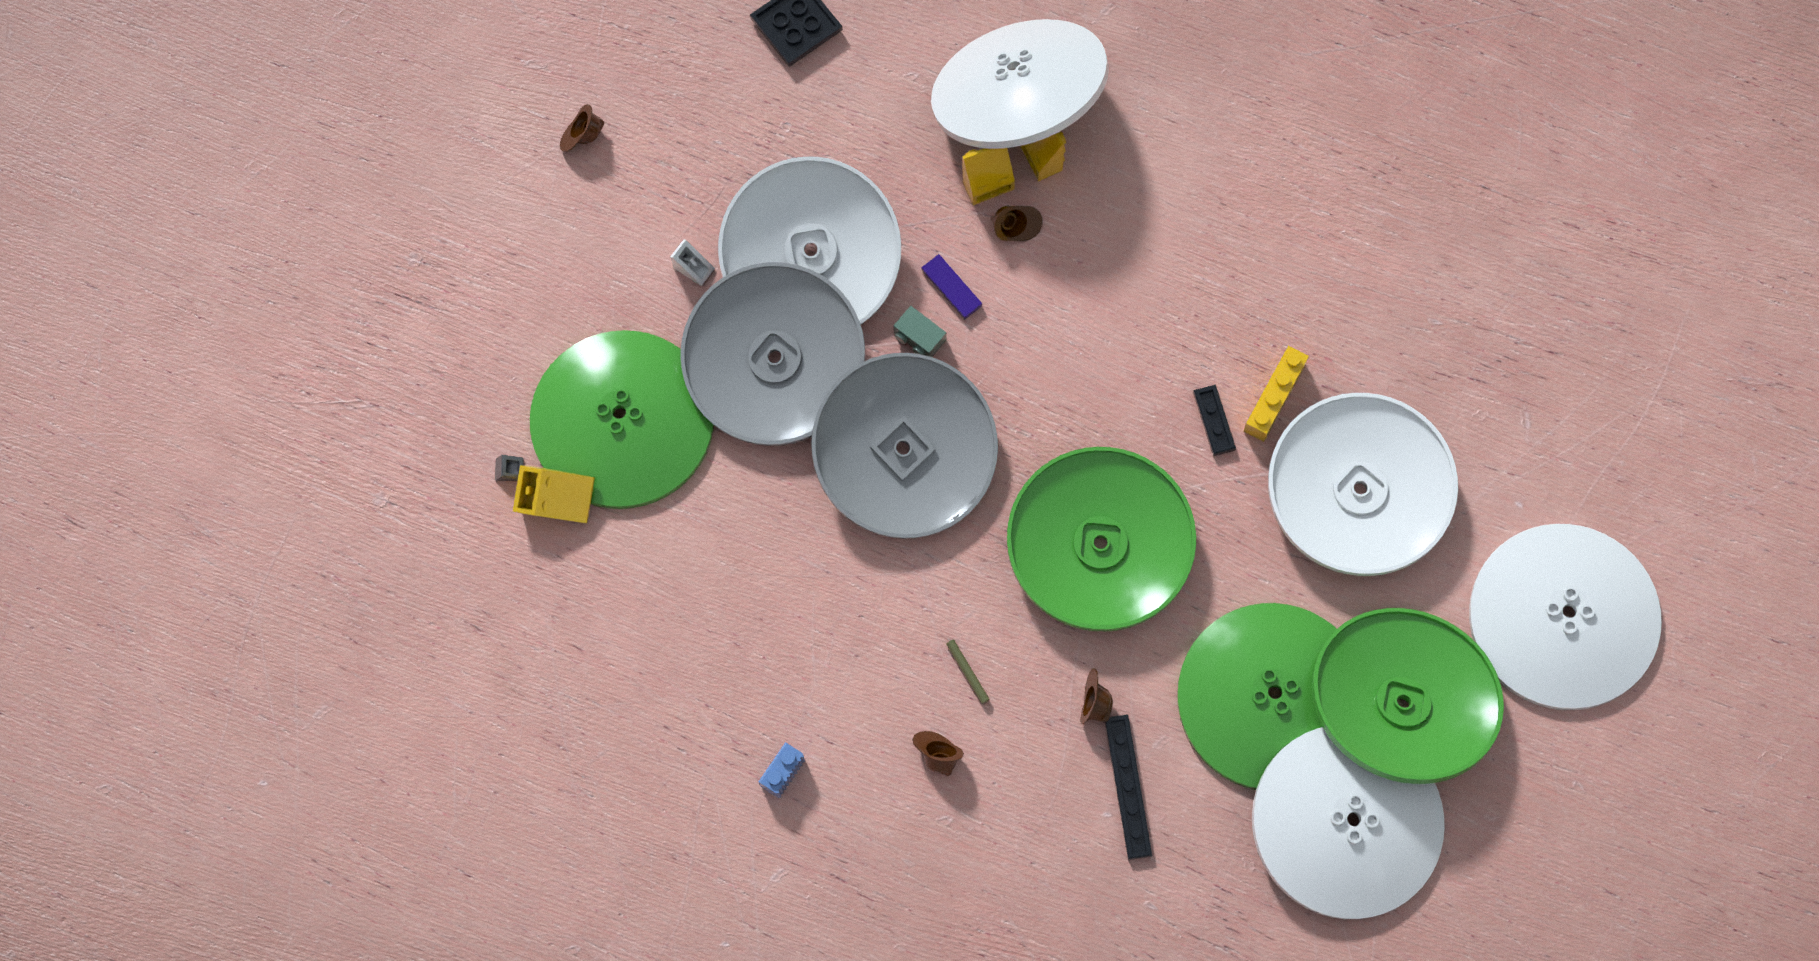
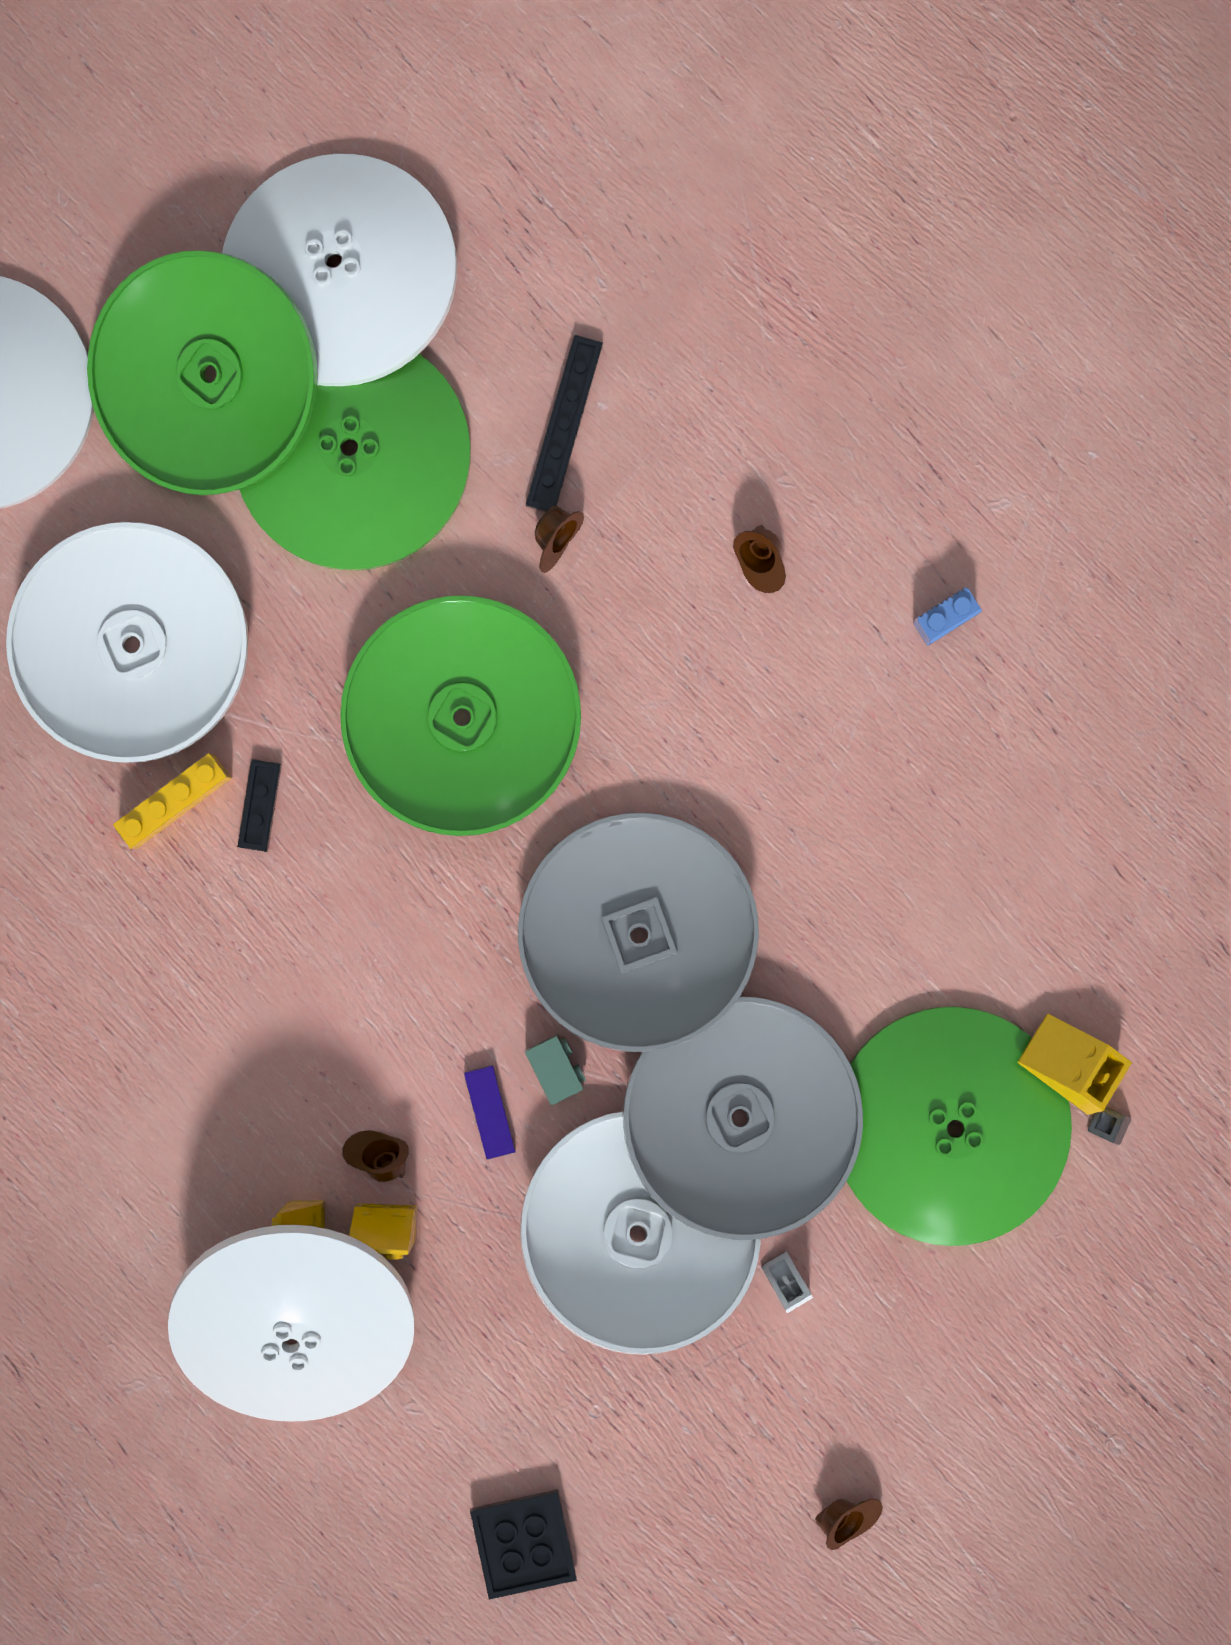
camera: 165 degrees left, 15 degrees up
(967, 671) = (683, 638): olive bar -> none

